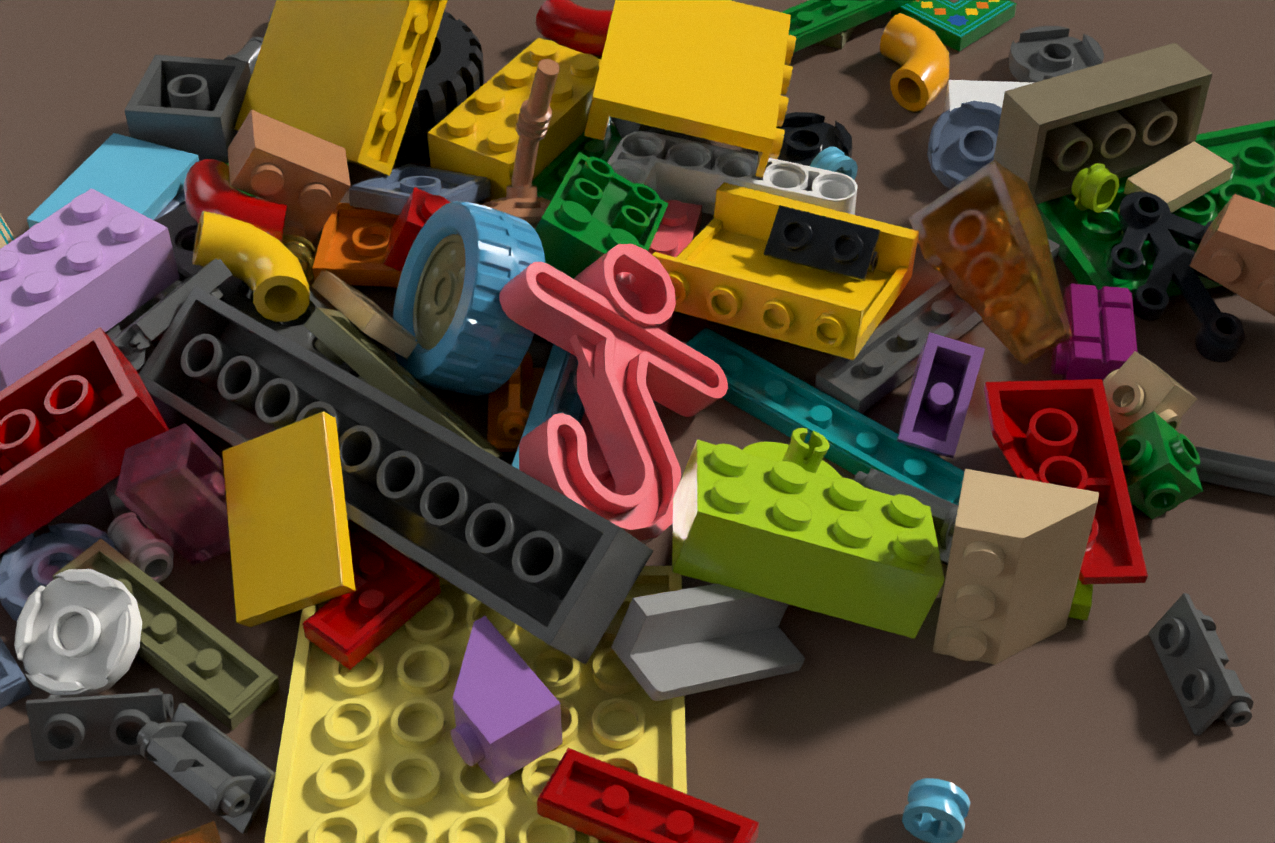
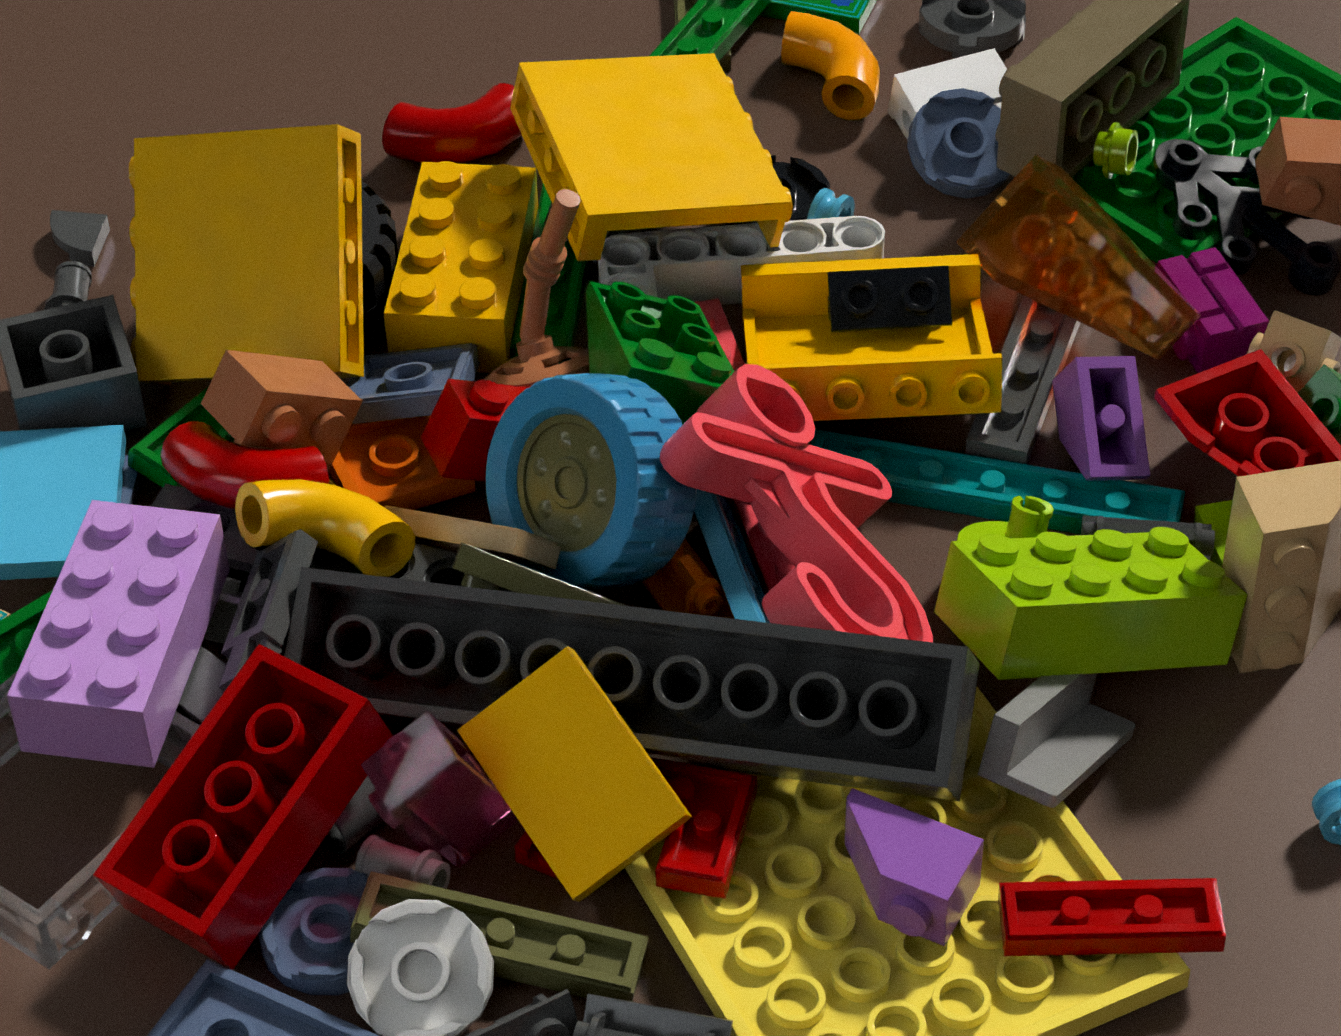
camera: 25 degrees left, 0 degrees up
(1181, 176) = (1187, 109): tan tile -> none

